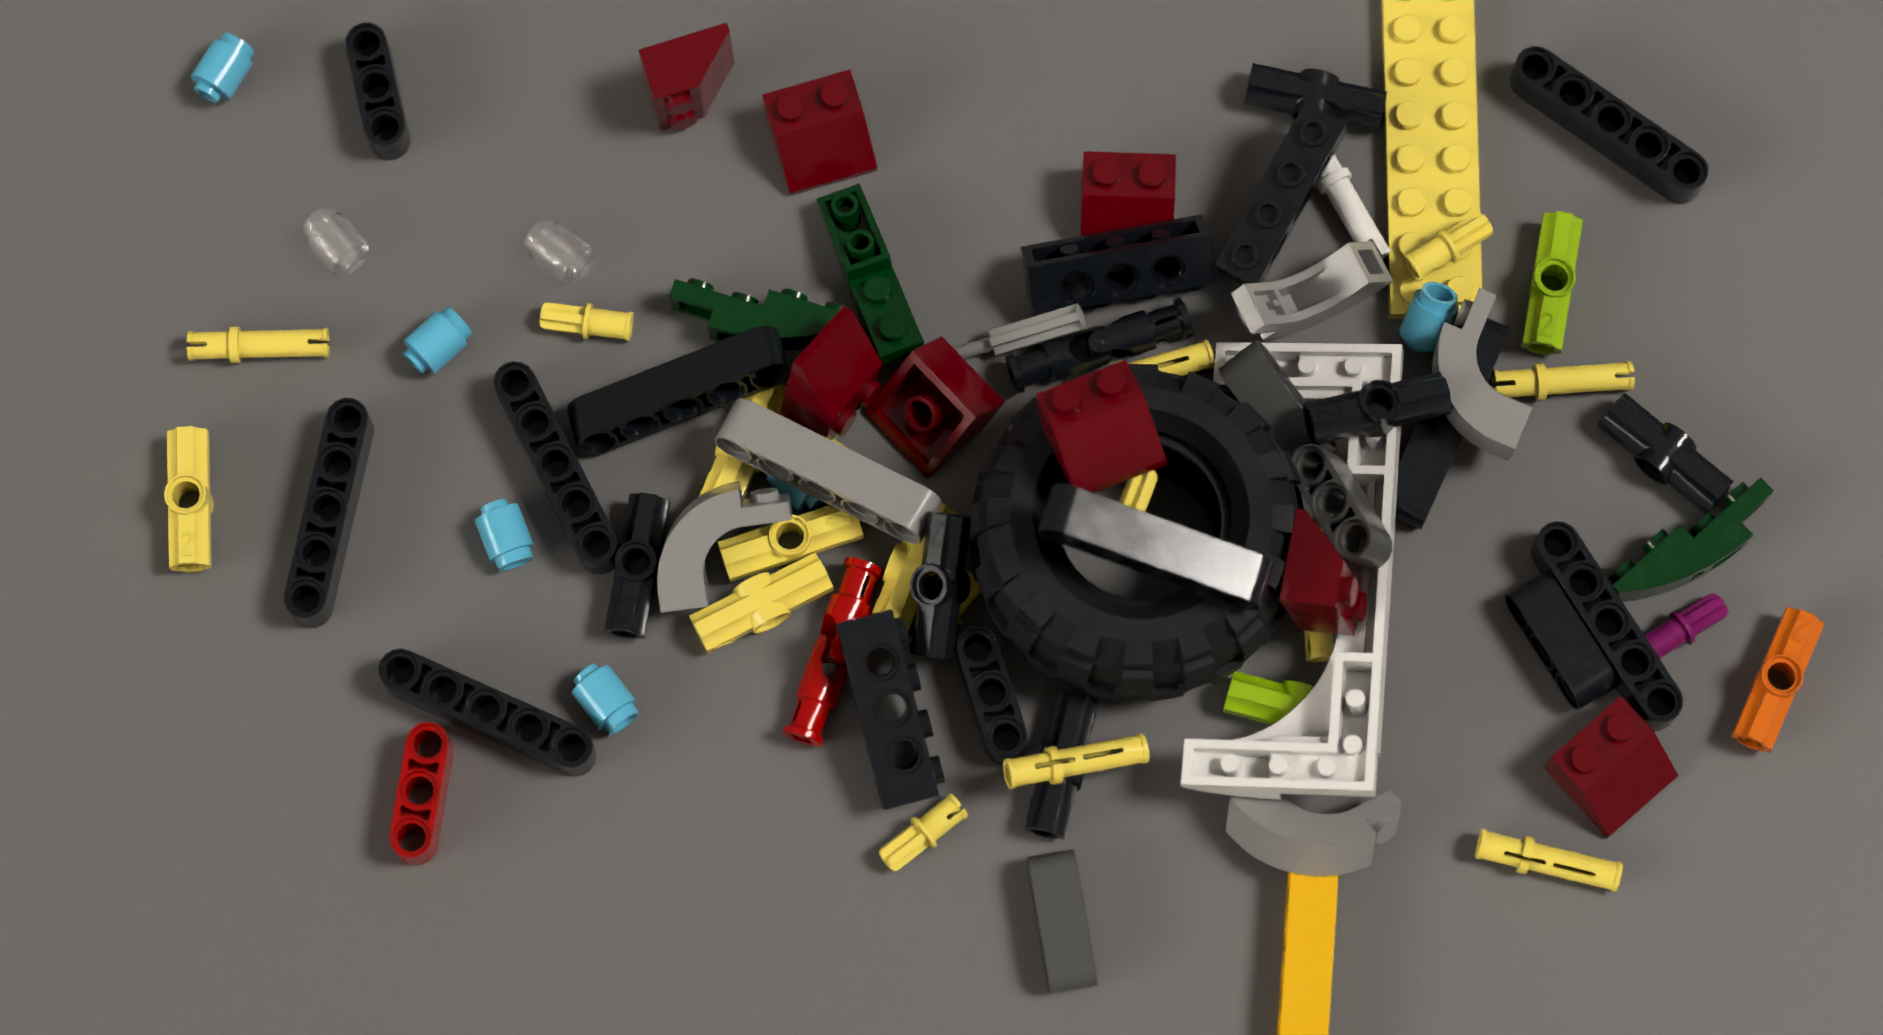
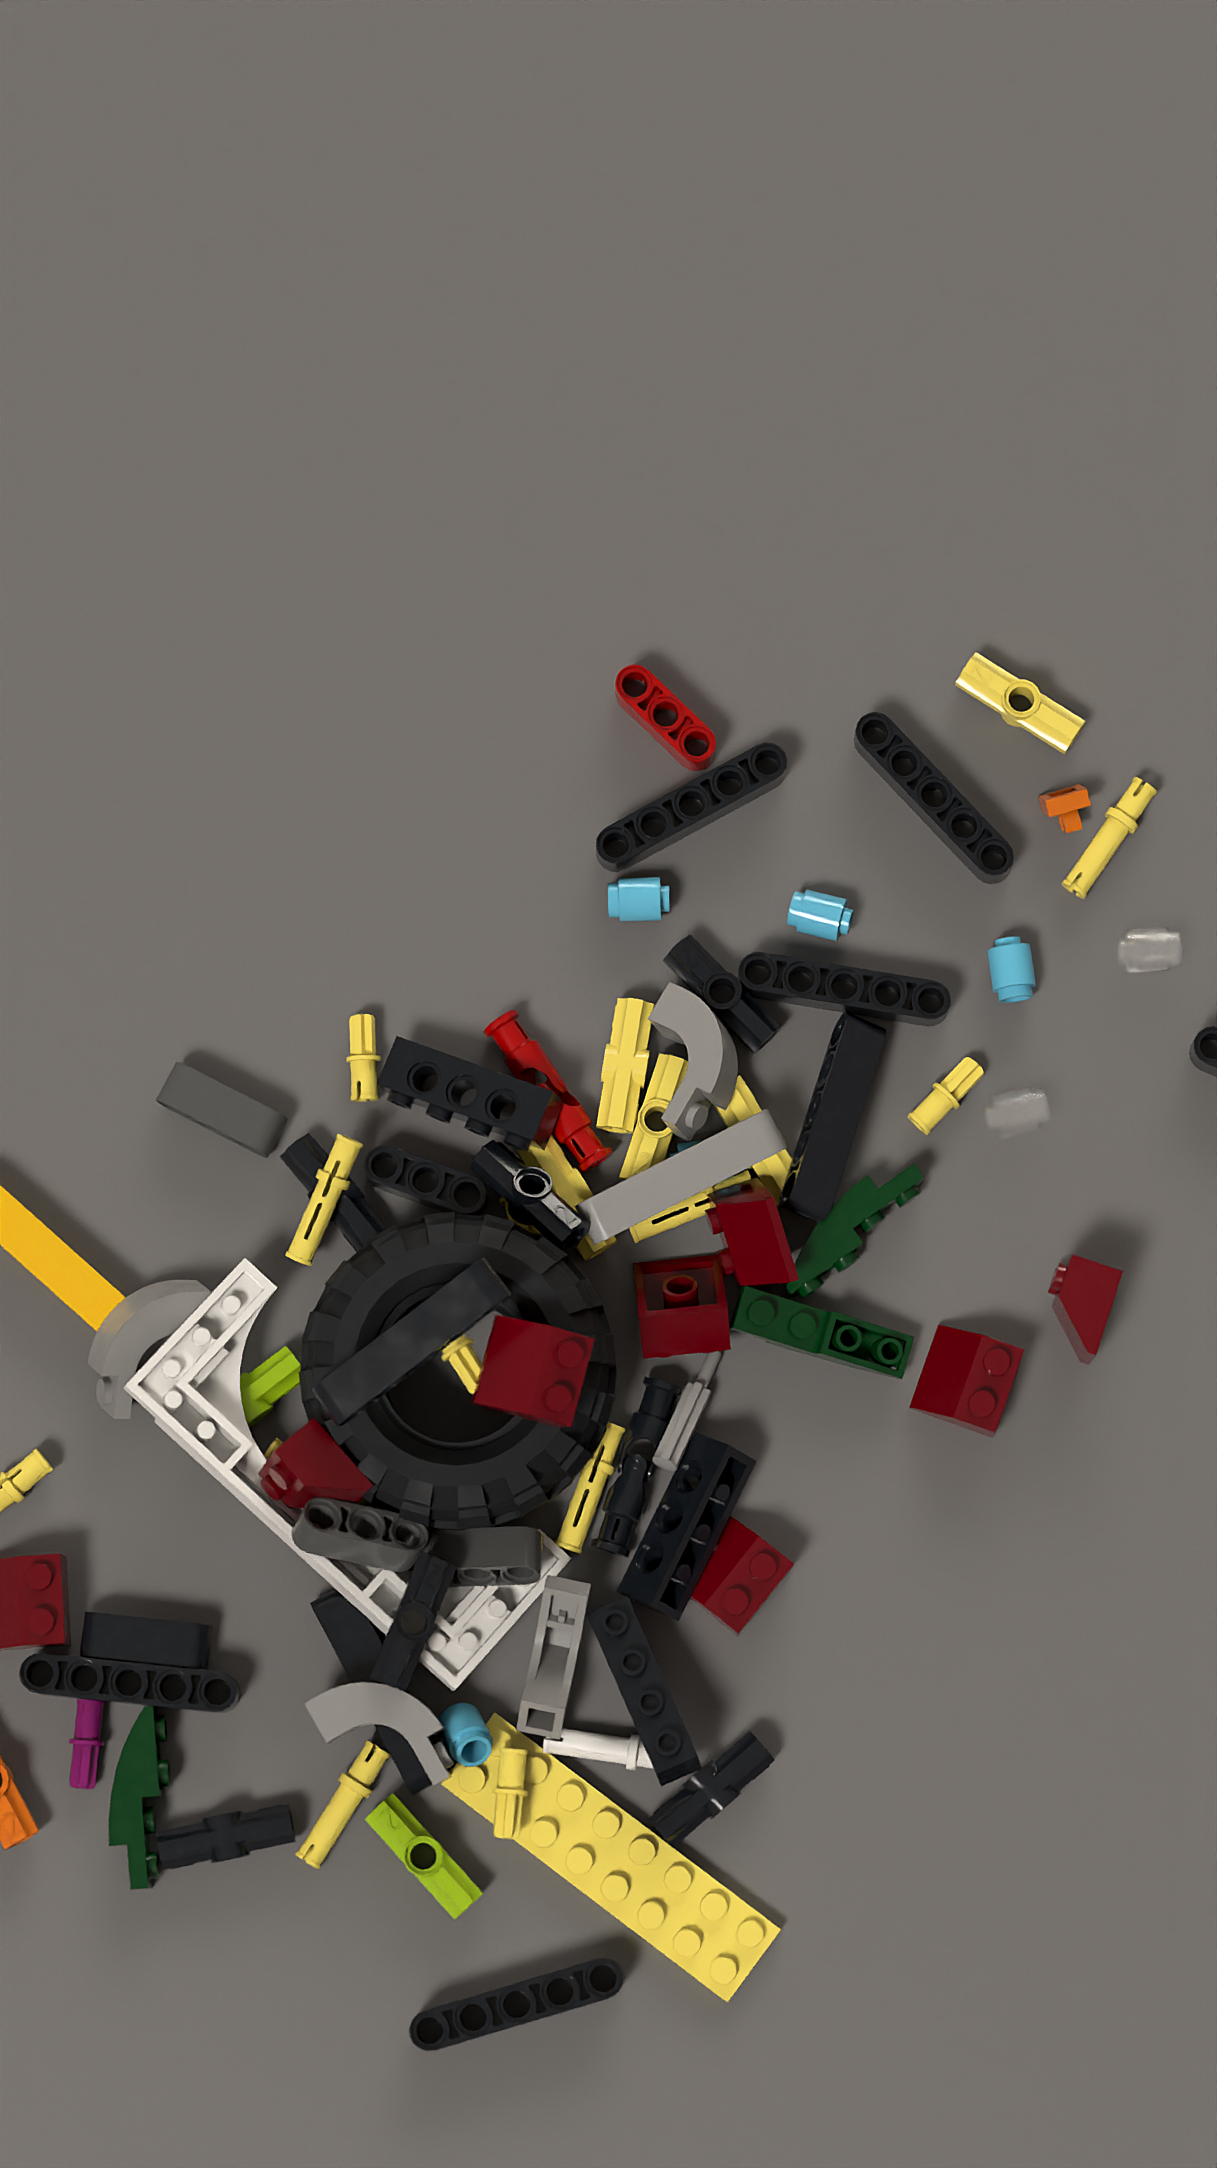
camera: 130 degrees right, 5 degrees up
(255, 398) = (1065, 805): none -> orange tile

